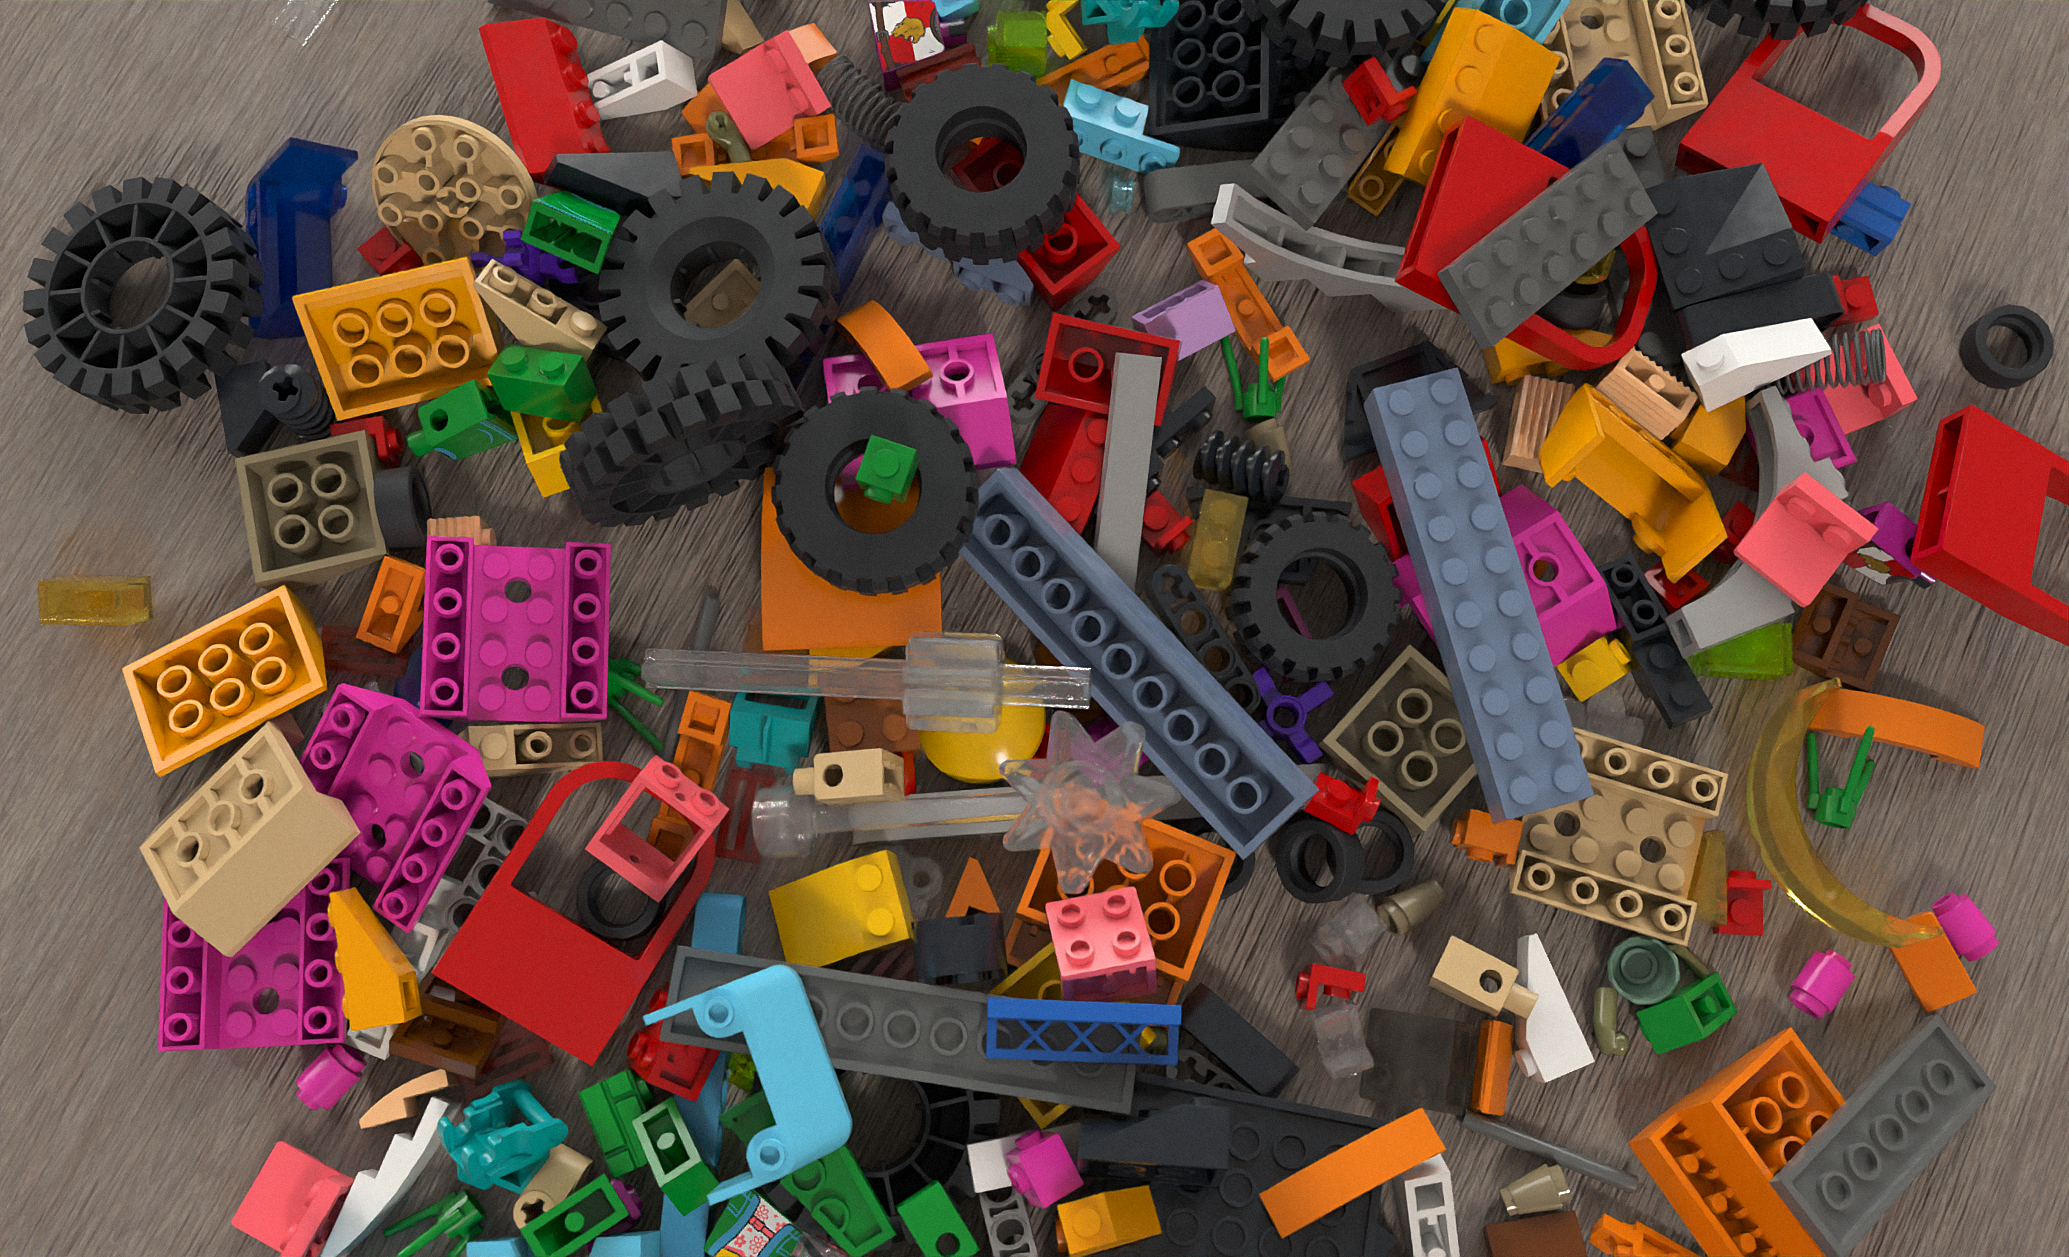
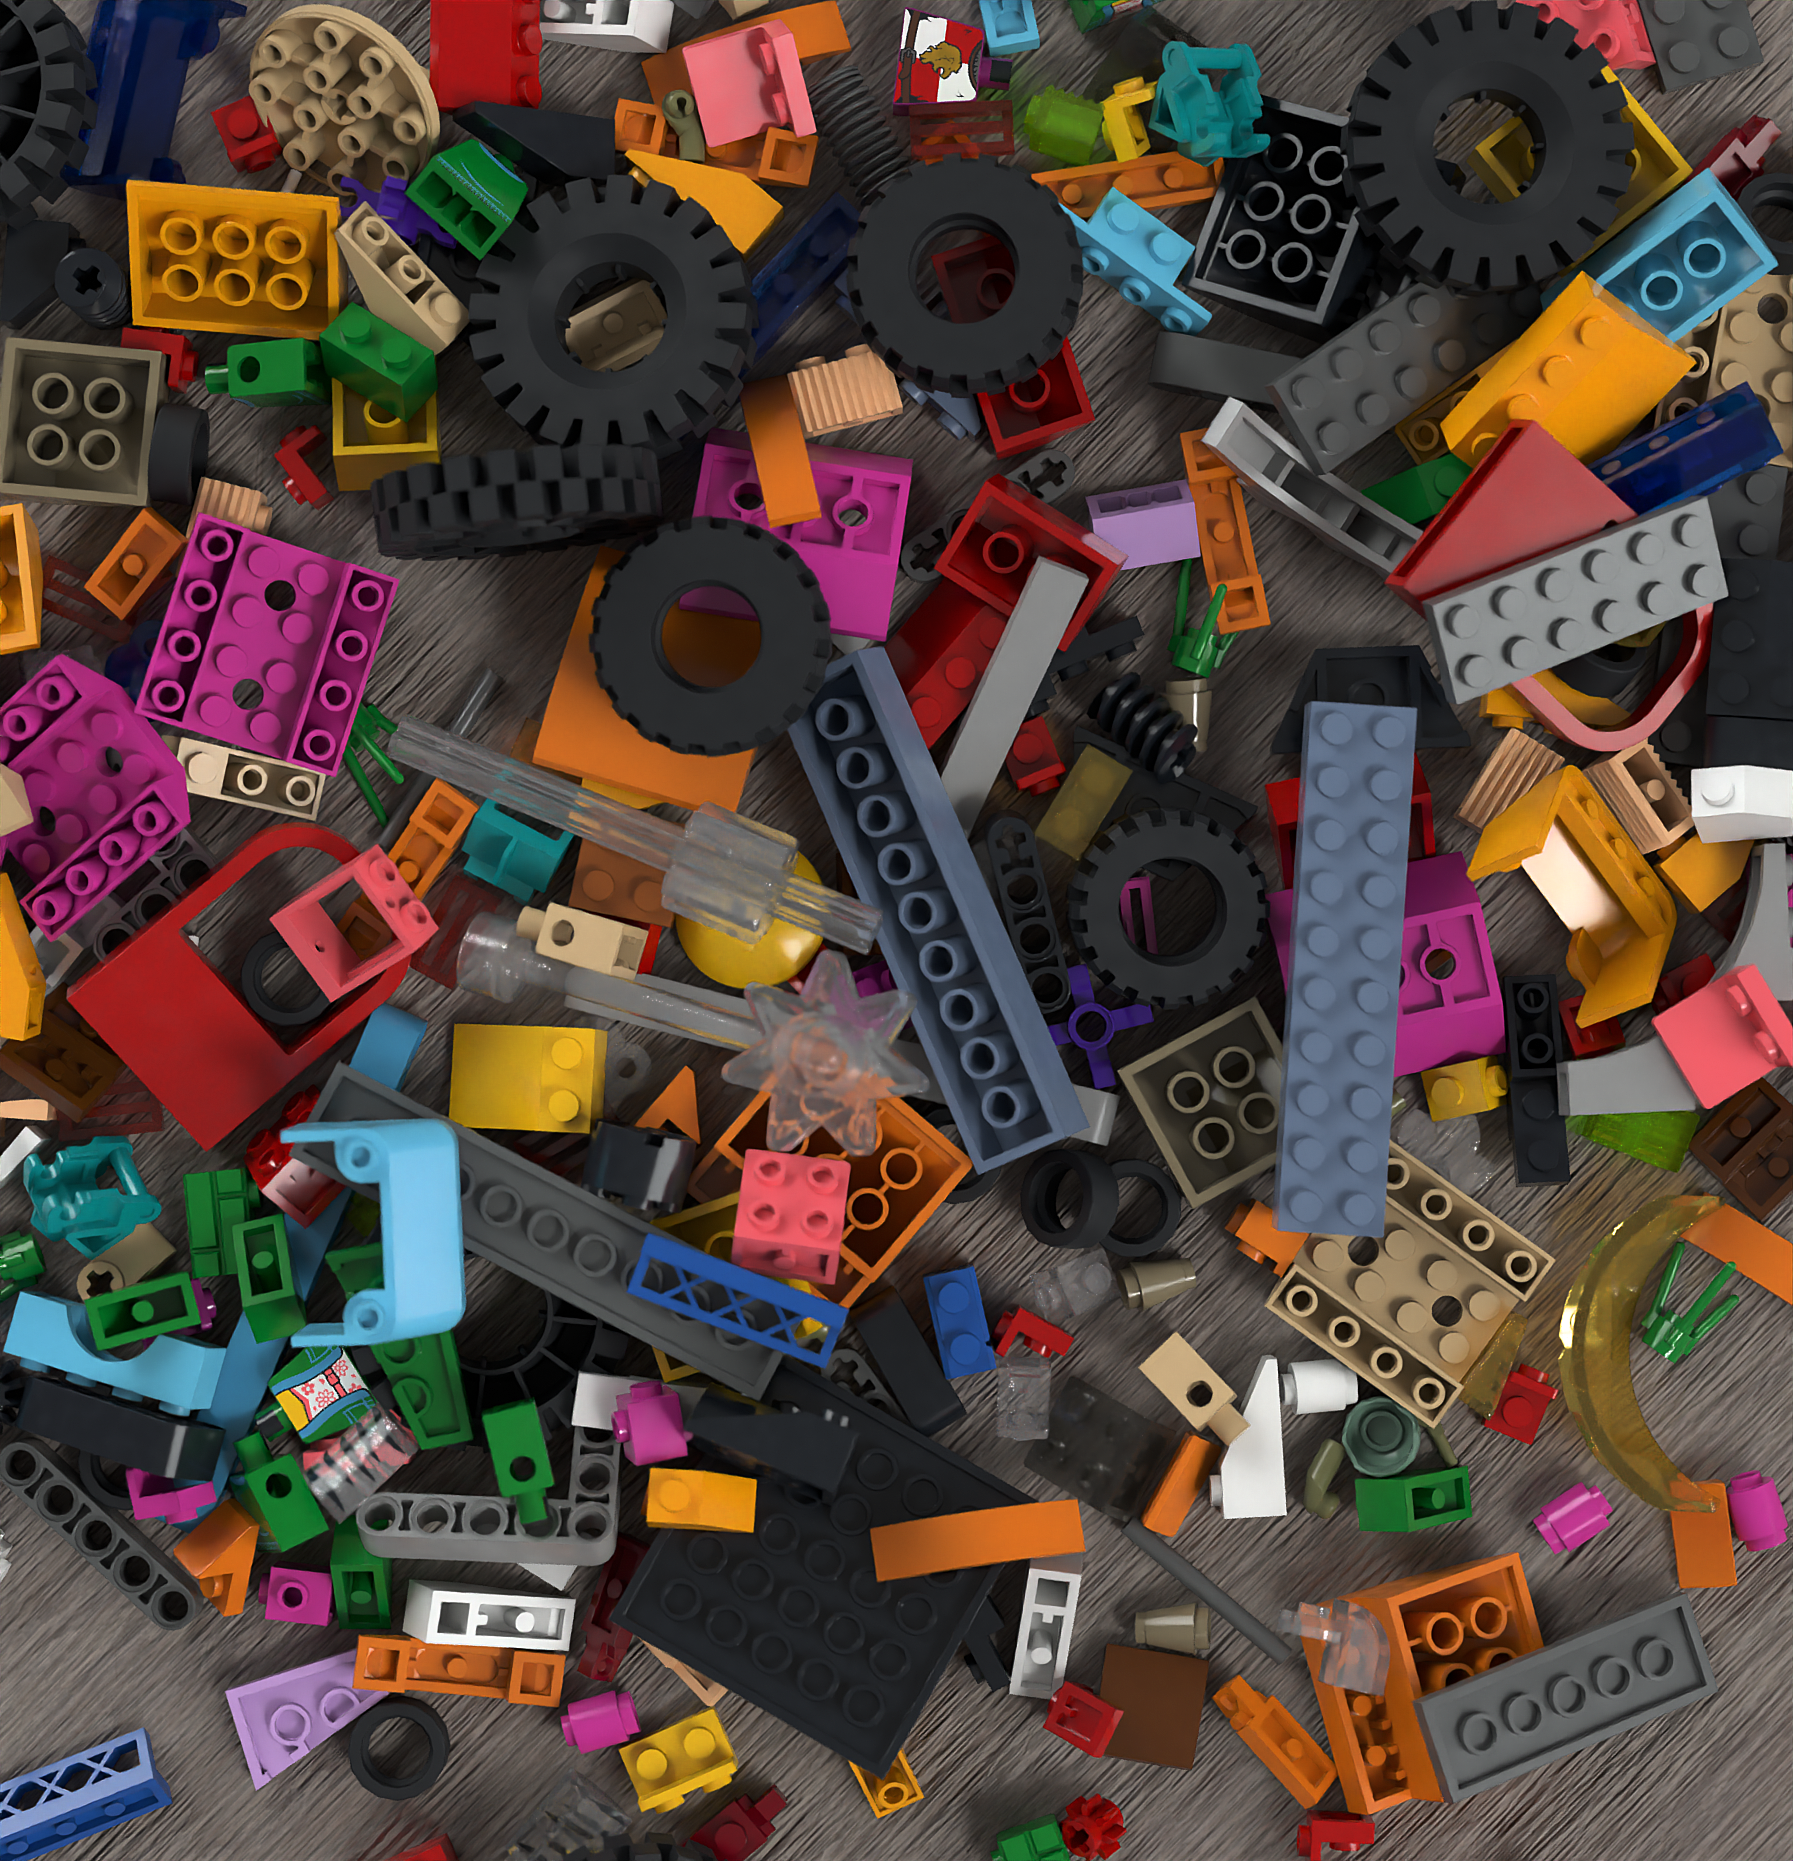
camera: 20 degrees right, 10 degrees up
(498, 482) = (301, 479): none -> red bracket
(887, 470) = (725, 632): green brick -> none
(921, 293) = (843, 391): none -> light nougat brick
(1122, 196) = (1126, 346): clear light blue bush -> none
(1266, 993) = (959, 1321): none -> blue brick
(1343, 805) = (1113, 1147): red bracket -> none
(1375, 94) = (1455, 337): red bracket -> none
(1391, 219) = (1420, 491): none -> green slope
(1577, 945) = (1318, 1386): none -> white brick
(1697, 1153) = (1355, 1644): none -> clear brick

